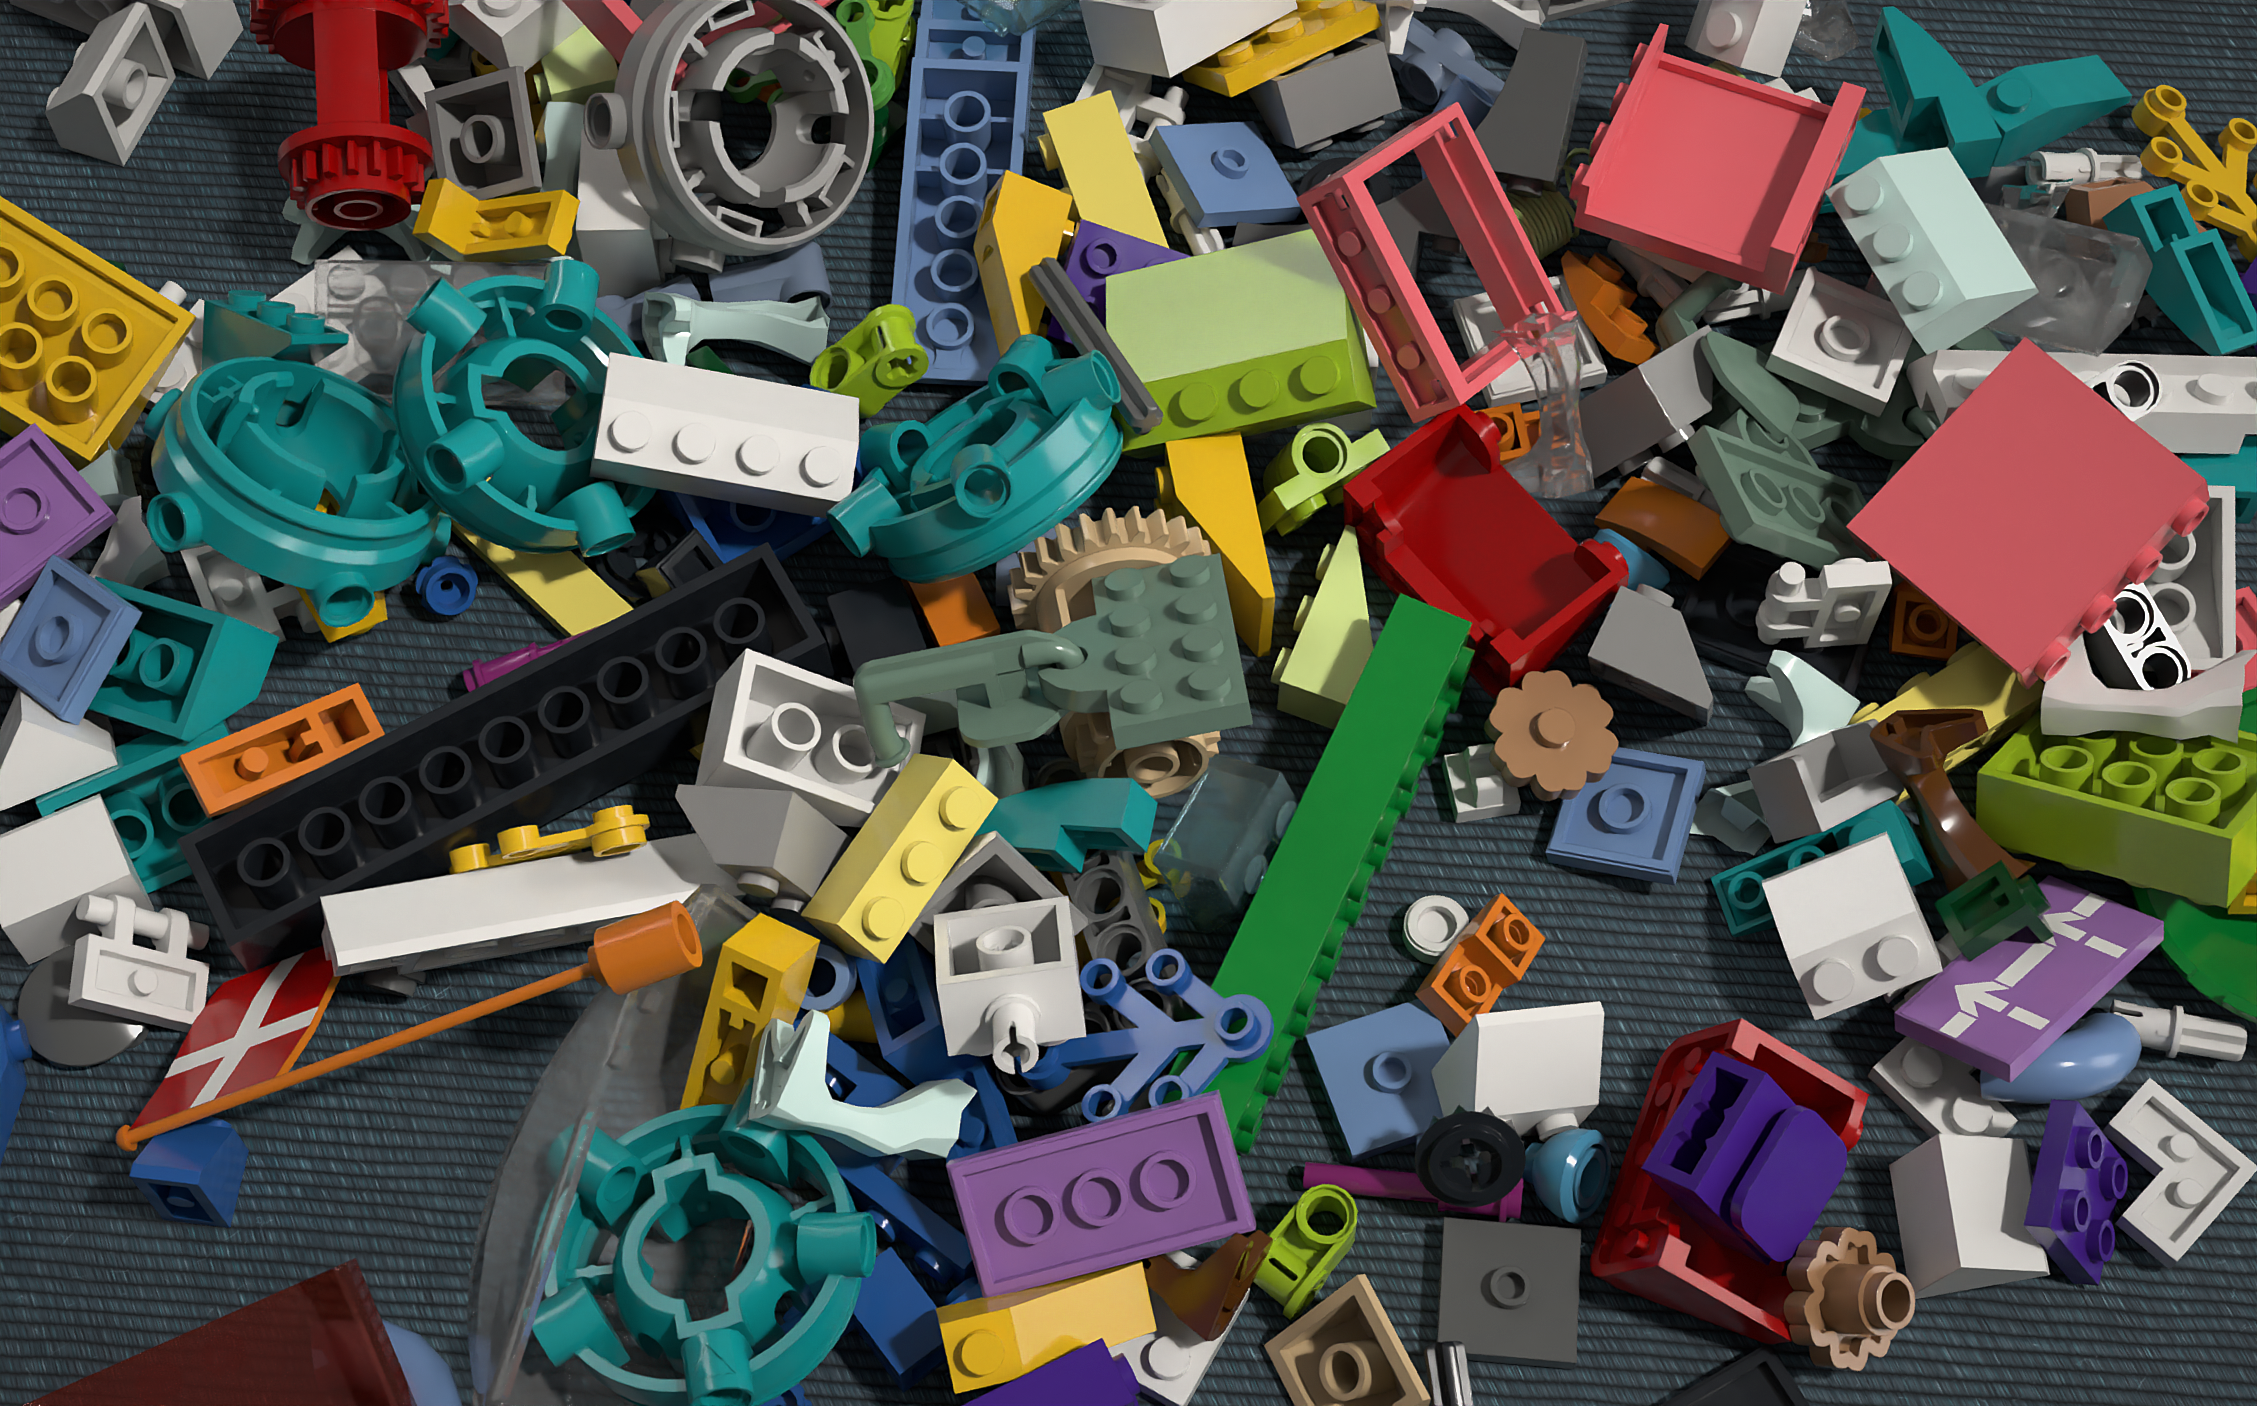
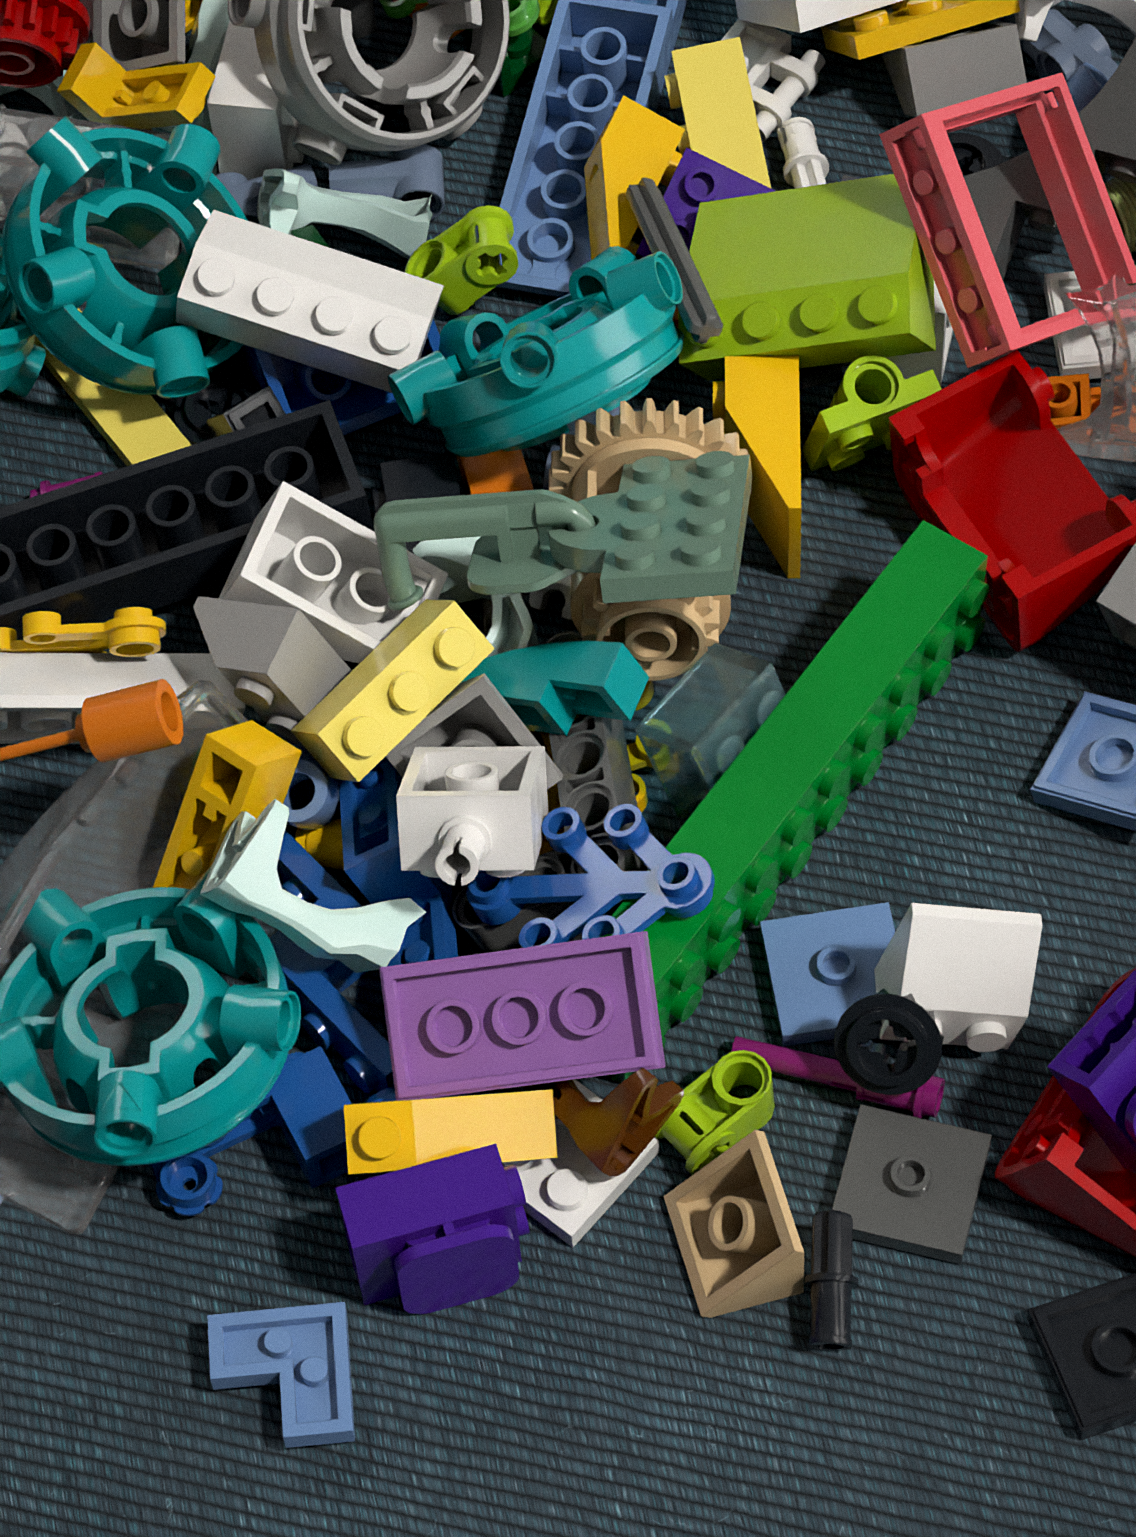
camera: 15 degrees right, 5 degrees down
(448, 601) = (35, 428): blue plate -> none
(1224, 173) = (836, 128): medium blue plate -> none
(1332, 640) = (852, 559): yellowish green slope -> none
(1432, 927) = (908, 846): white tile -> none
(1477, 787) = (981, 718): white tile -> none
(1480, 964) = (947, 875): orange slope -> none
(1551, 735) = (1052, 676): medium nougat plant -> none
(1570, 1172) = (992, 1080): dark azure brick -> none

